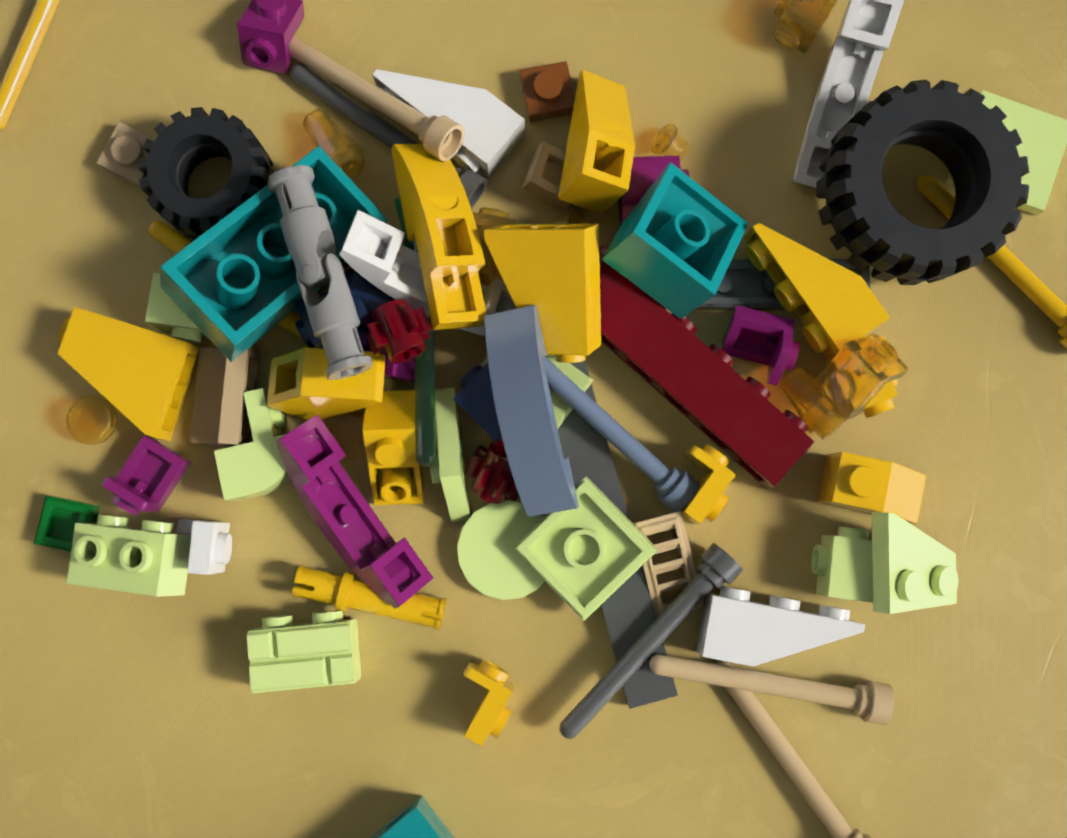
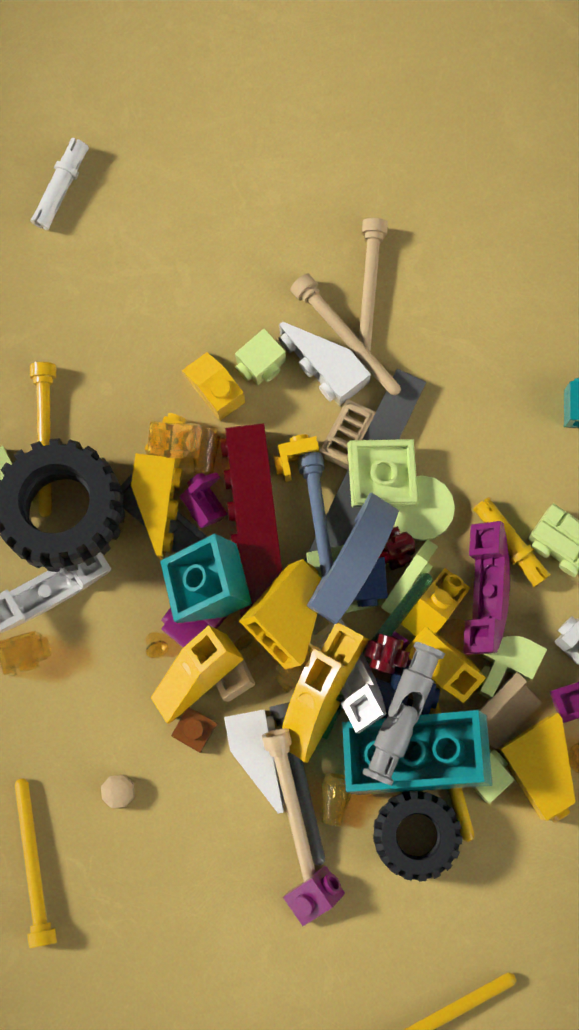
camera: 135 degrees left, 5 degrees down
(123, 153) = (449, 891): tan plate -> none
(491, 713) = (494, 436): yellow bracket -> none
(715, 570) = (328, 410): dark grey piece -> none
(909, 567) = (234, 331): yellowish green wing -> none

